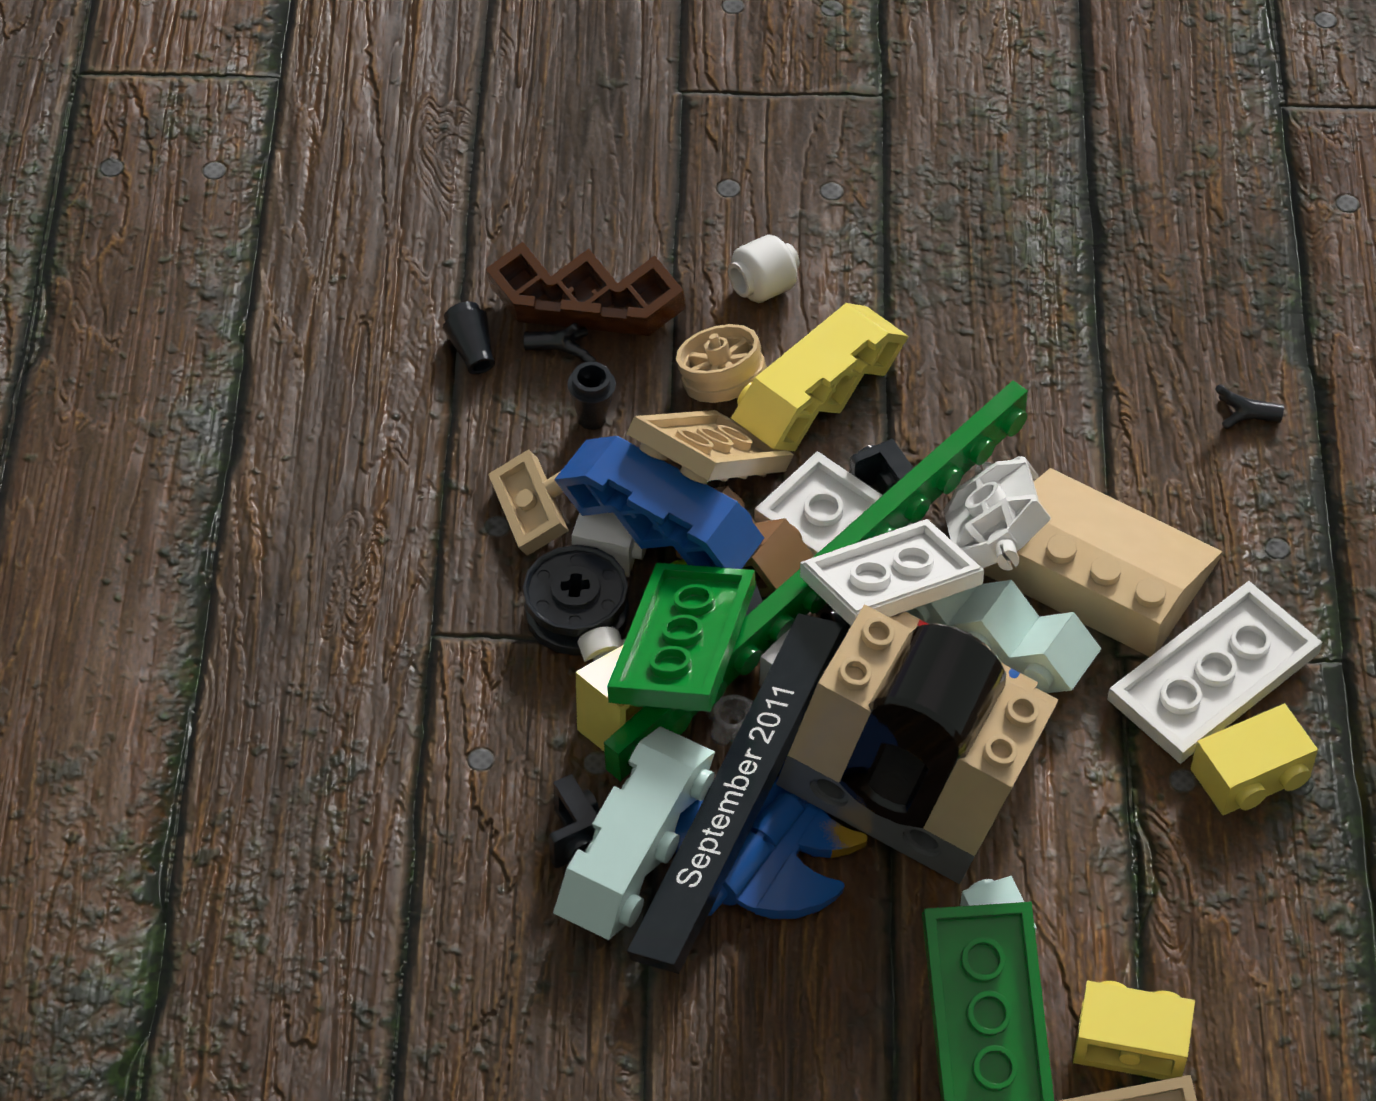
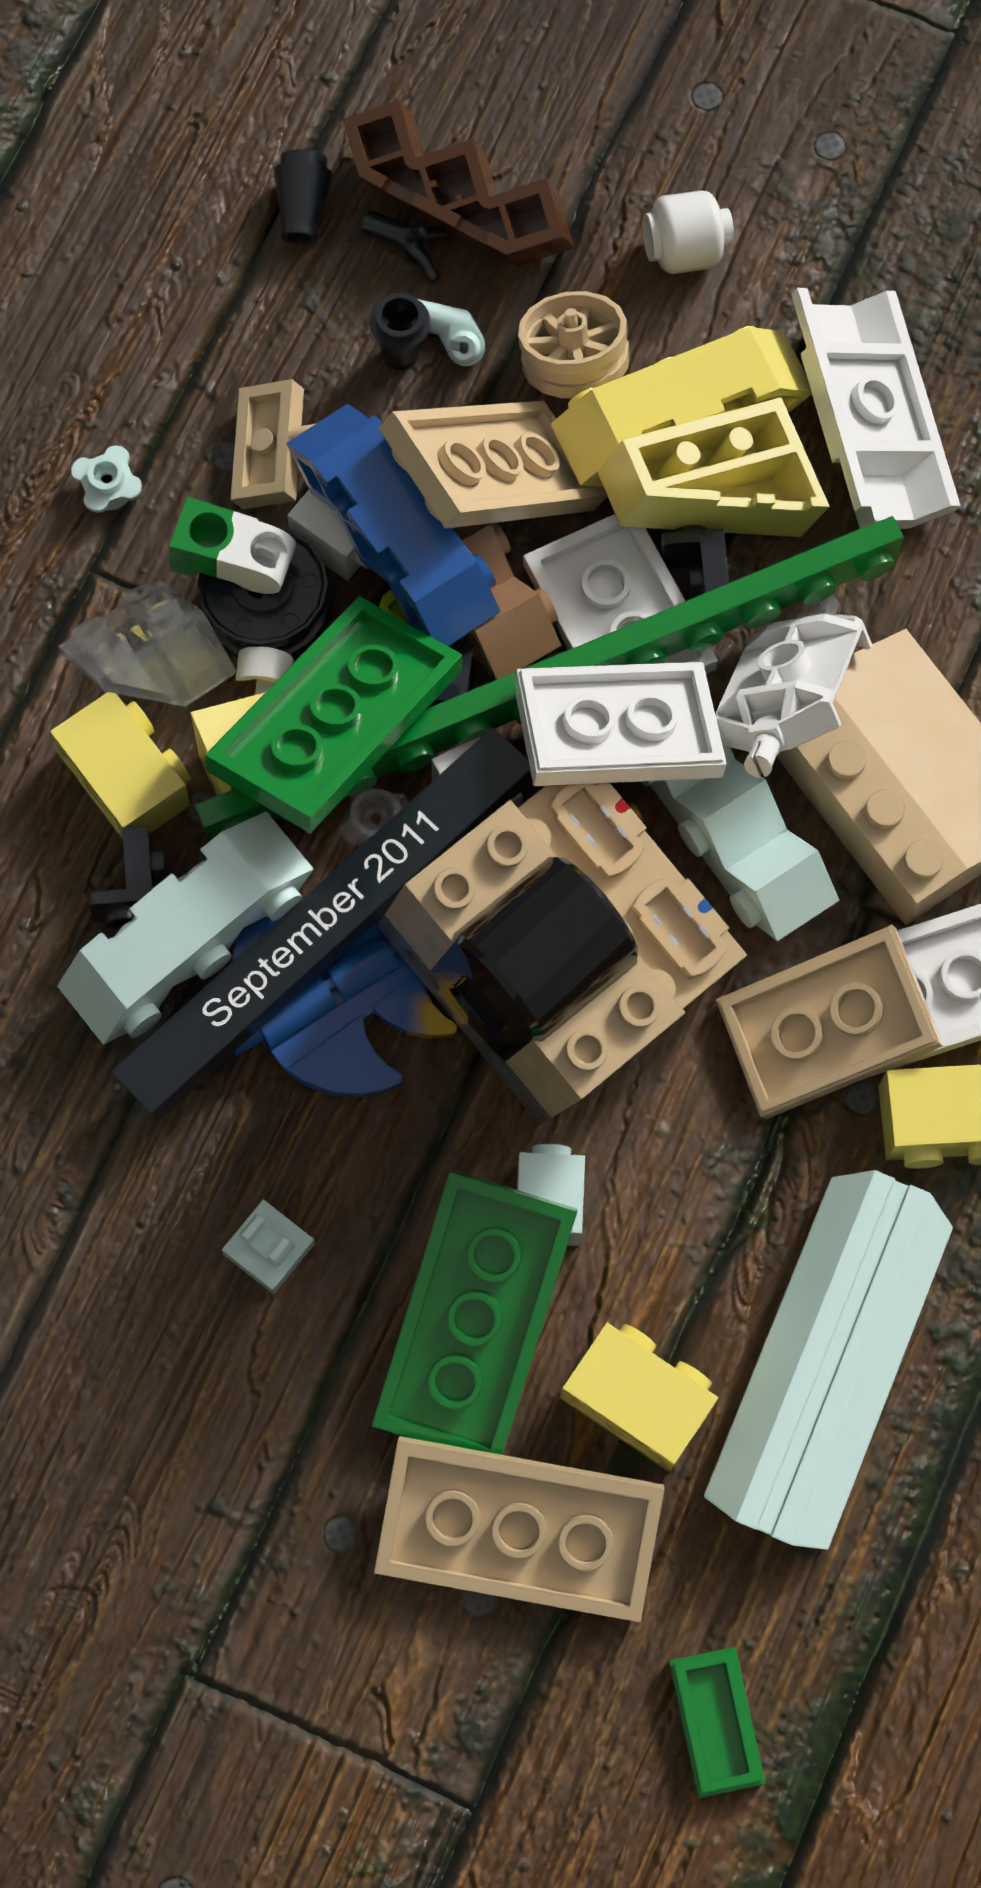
camera: 20 degrees right, 20 degrees up
(417, 578) = (110, 495): none -> light aqua plate
(512, 659) = (151, 648): none -> clear slope
(525, 748) = (120, 764): none -> light yellow brick
(544, 564) = (230, 547): none -> leg
(633, 390) = (457, 333): none -> light aqua arm
(802, 1038) = (268, 1246): none -> light aqua tile
(870, 403) = (717, 473): none -> light yellow wedge
(954, 332) = (875, 409): none -> white piece
(1136, 730) = (829, 1022): none -> tan tile
(1255, 951) = (830, 1359): none -> light aqua piece

